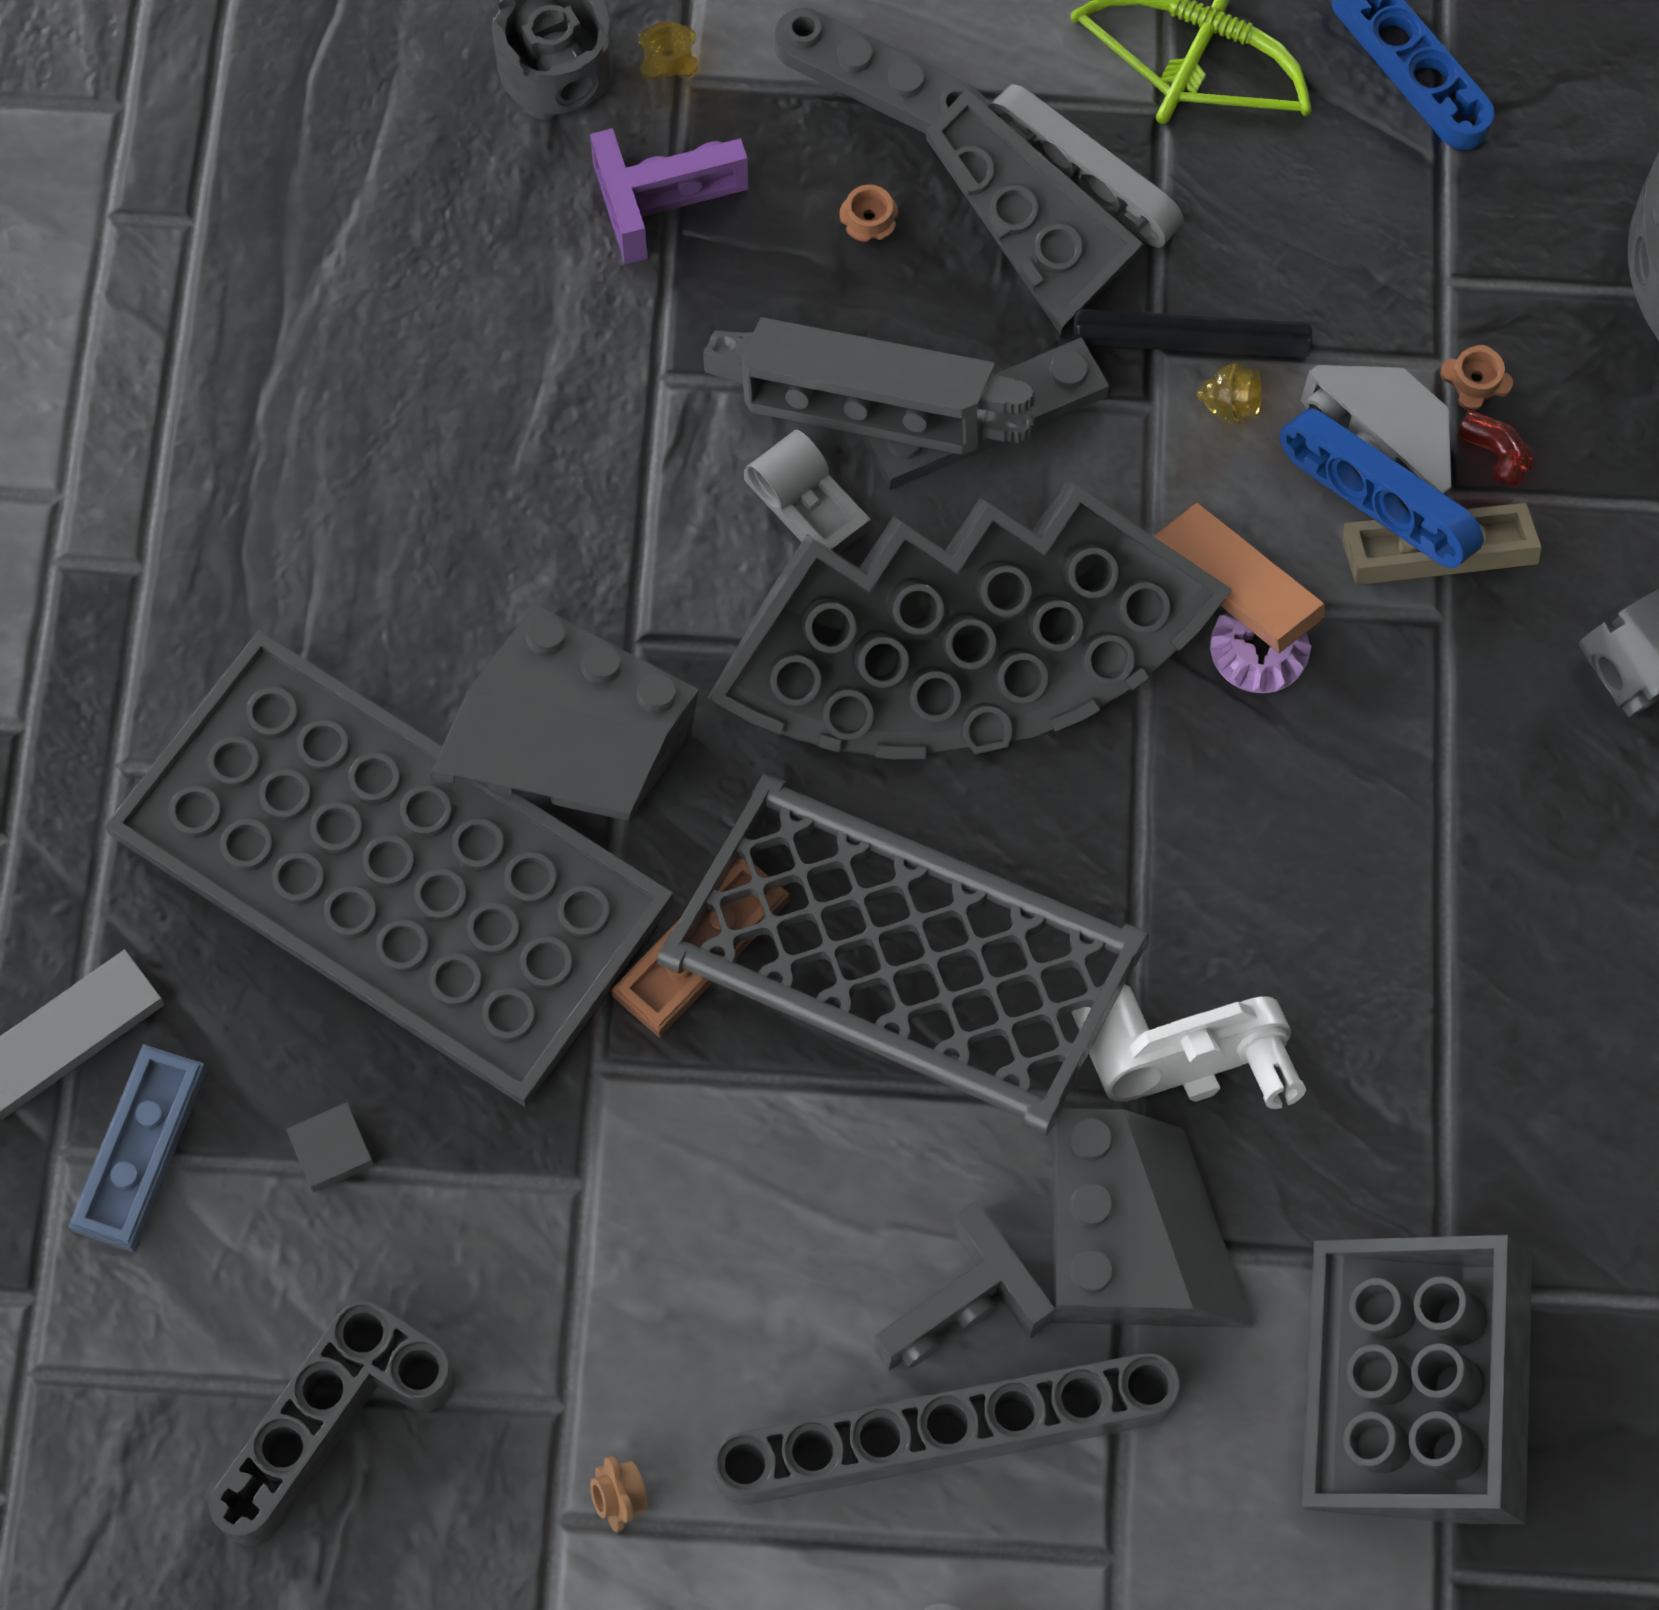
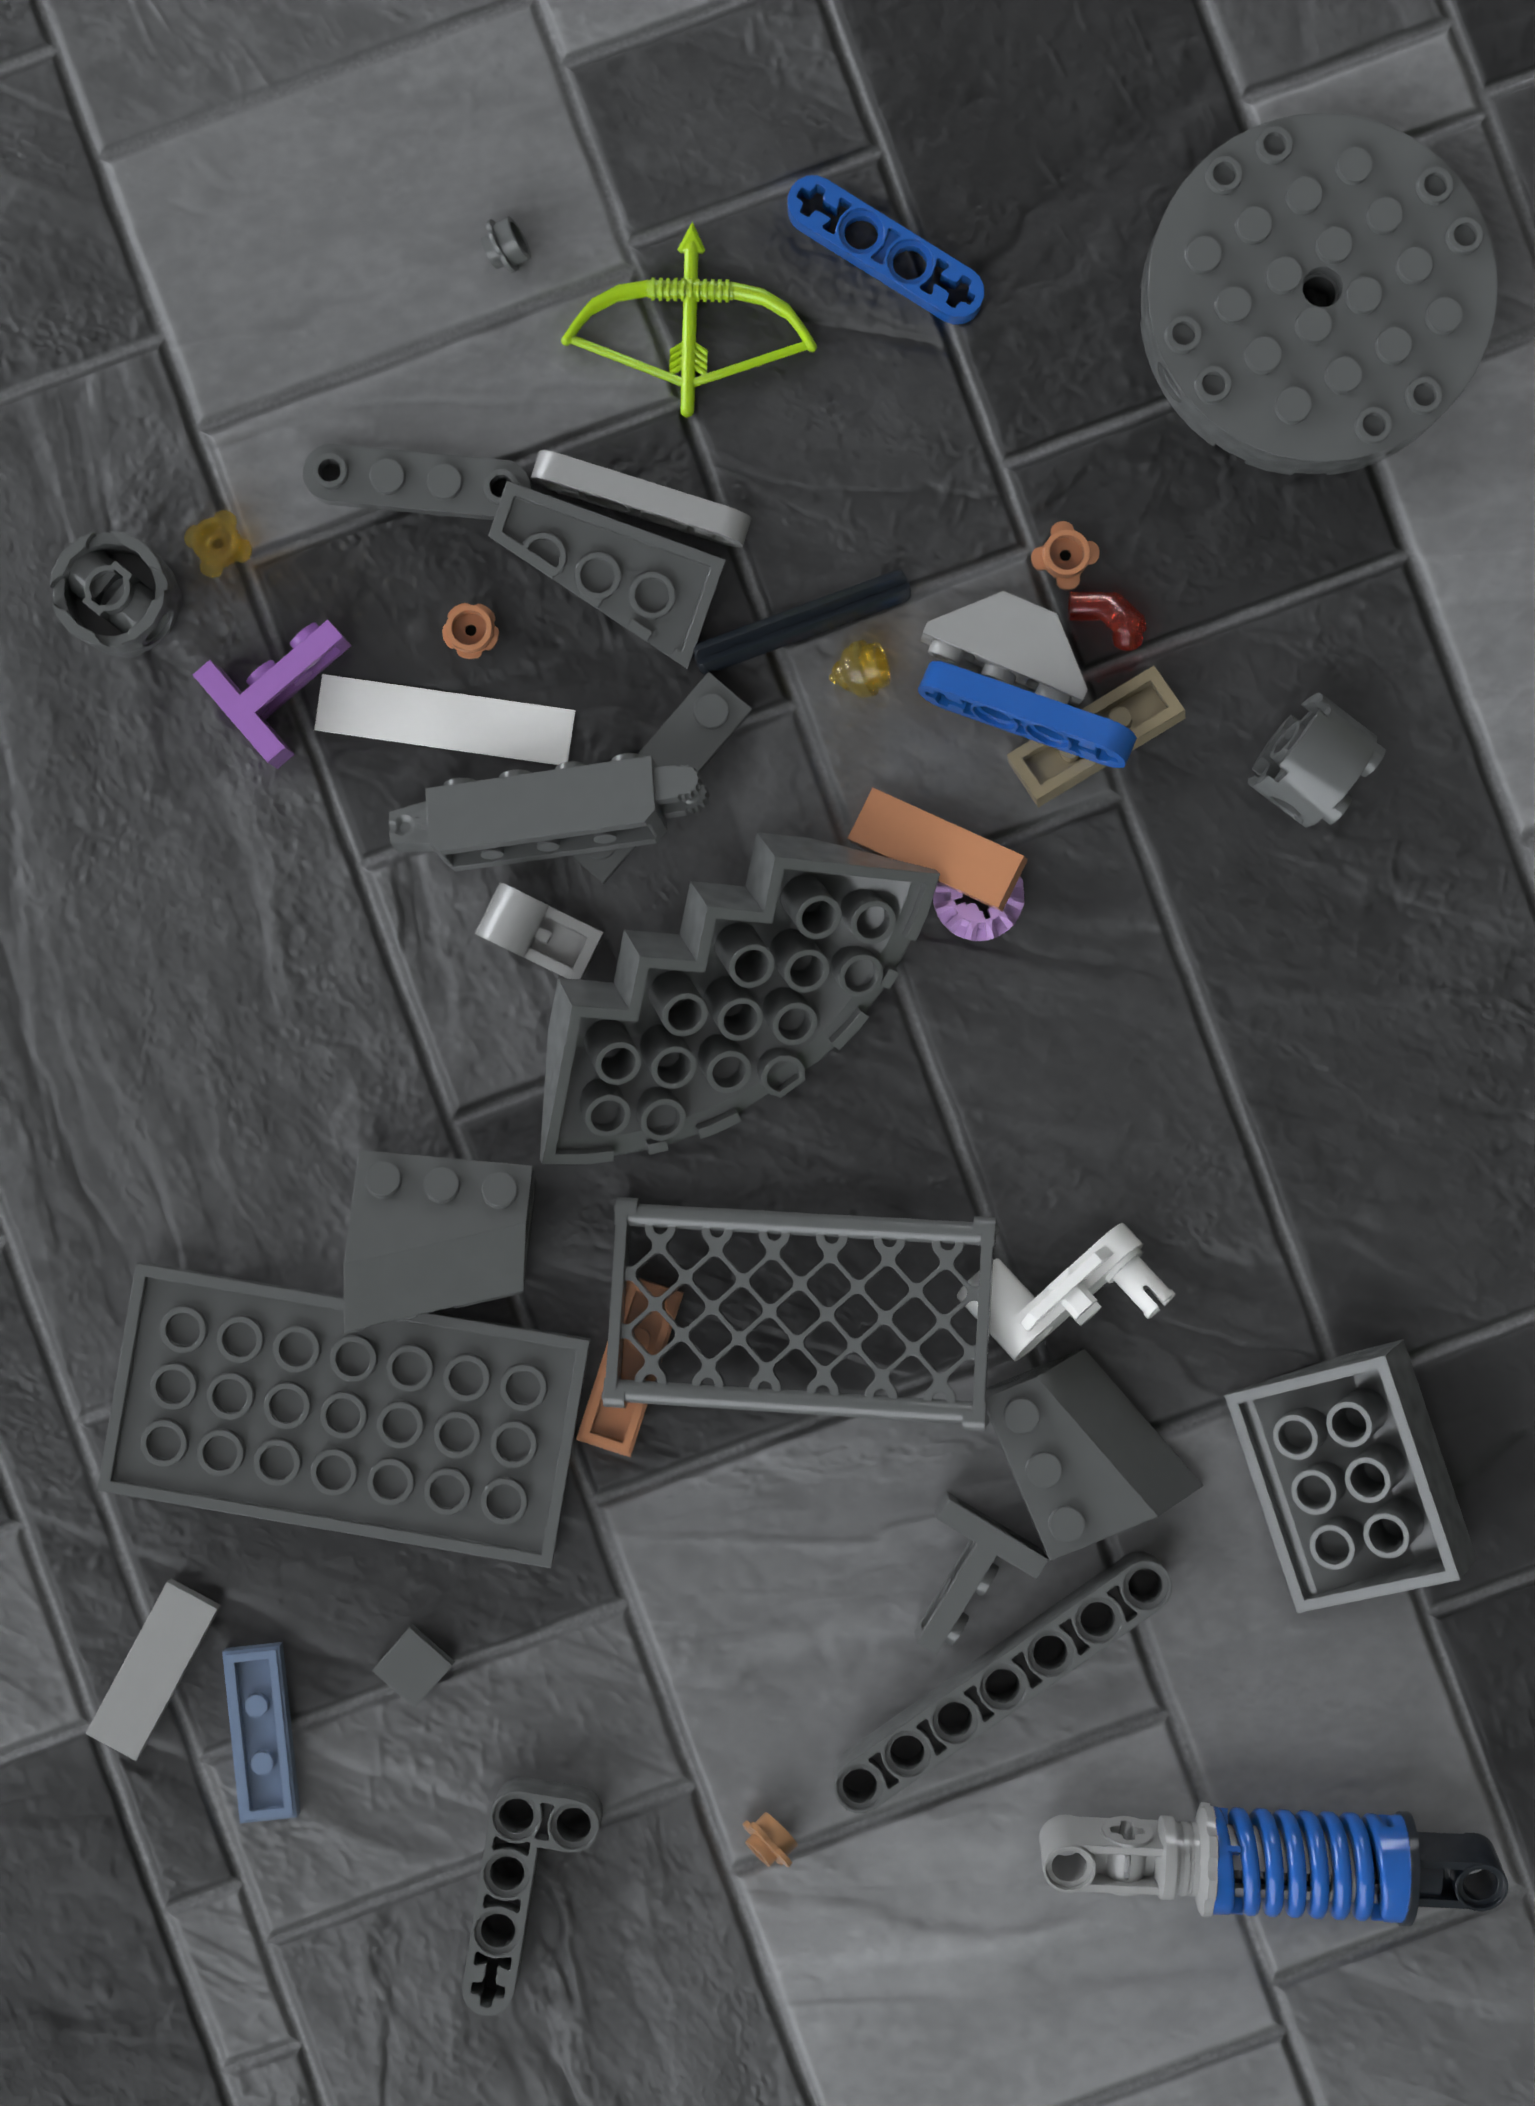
camera: 30 degrees left, 20 degrees up
(799, 280) = (444, 720): none -> white sticker

